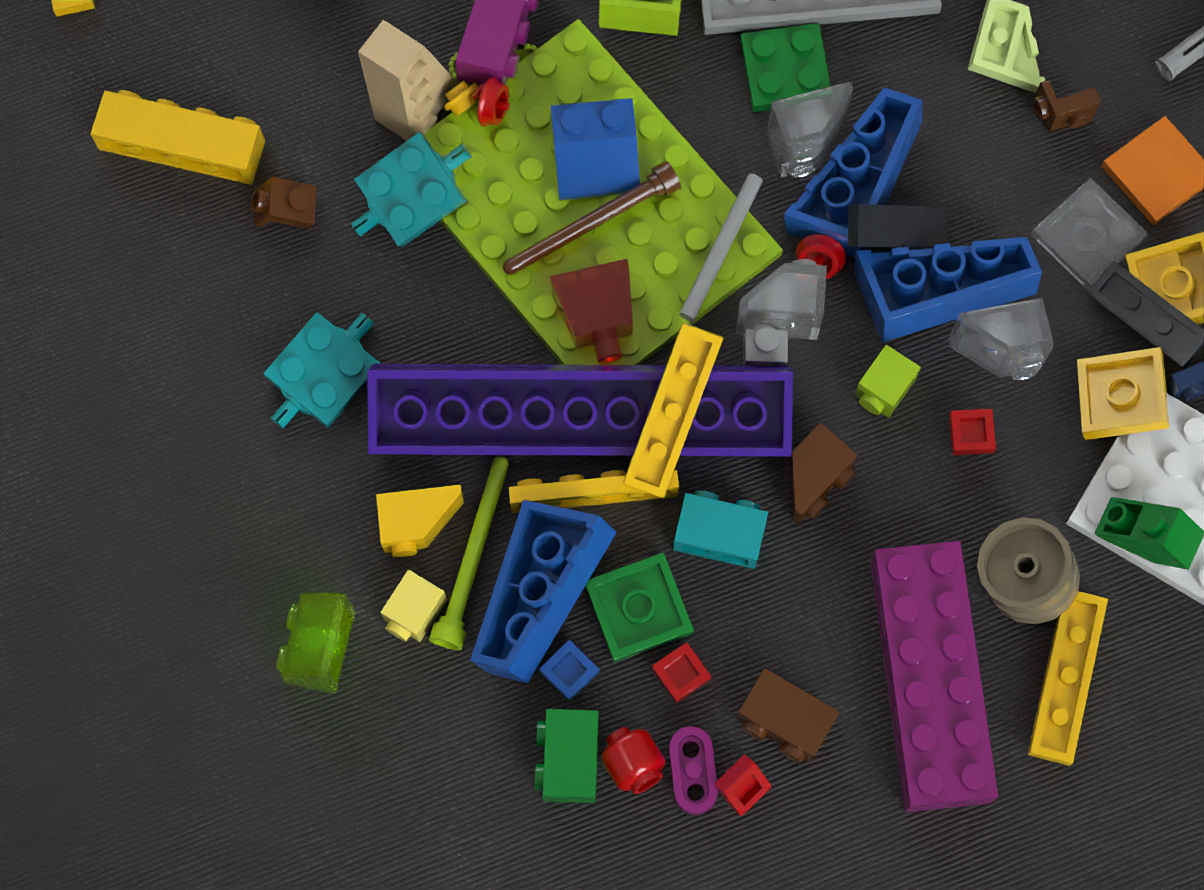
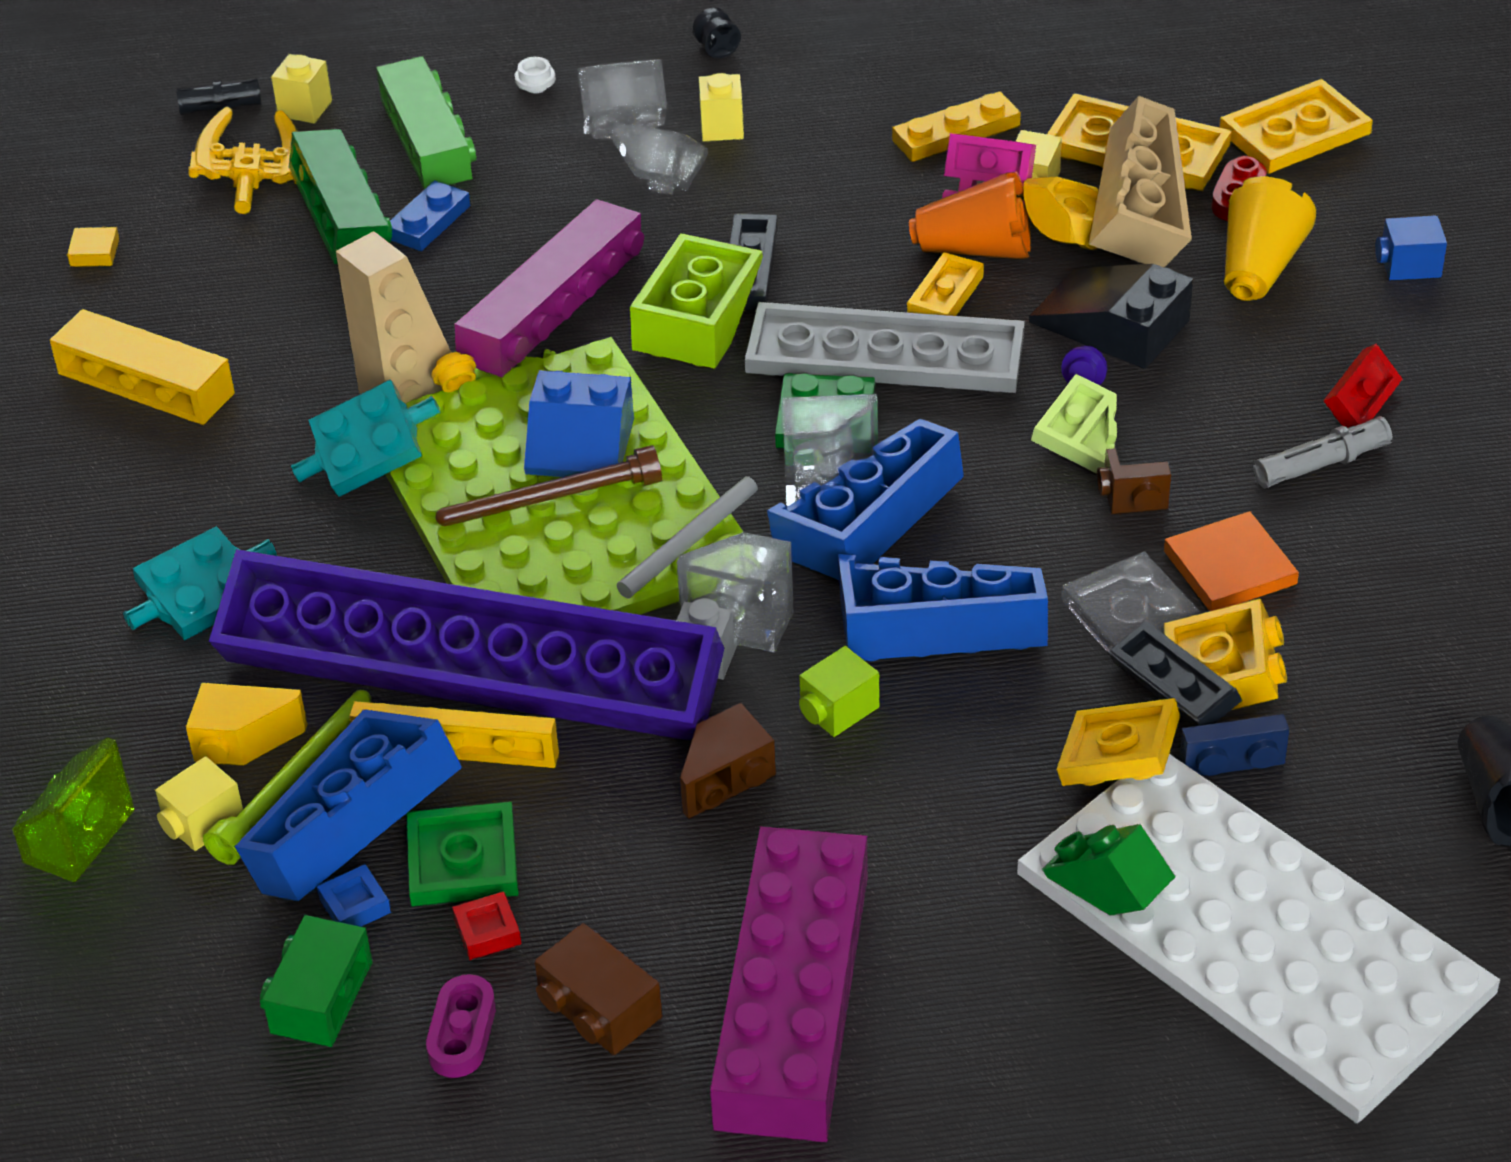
camera: 15 degrees right, 30 degrees down
(284, 203) = (228, 435): reddish brown bracket -> none
(492, 102) = (481, 371): red hat -> none
(596, 307) = (526, 551): clear red torso -> none
(633, 760) = (390, 995): red head -> none
(673, 409) = (562, 638): yellow plate -> none
(720, 529) = (587, 795): teal brick -> none
(742, 785) = (515, 1048): red plate -> none
(824, 251) = (809, 568): red hat -> none
(896, 225) = (884, 533): black tile -> none
(972, 432) = (926, 756): red plate -> none
(1005, 338) = (985, 660): clear slope -> none
(1025, 546) = (944, 885): dark tan wheel -> none
(1067, 680) = (965, 1018): yellow plate -> none

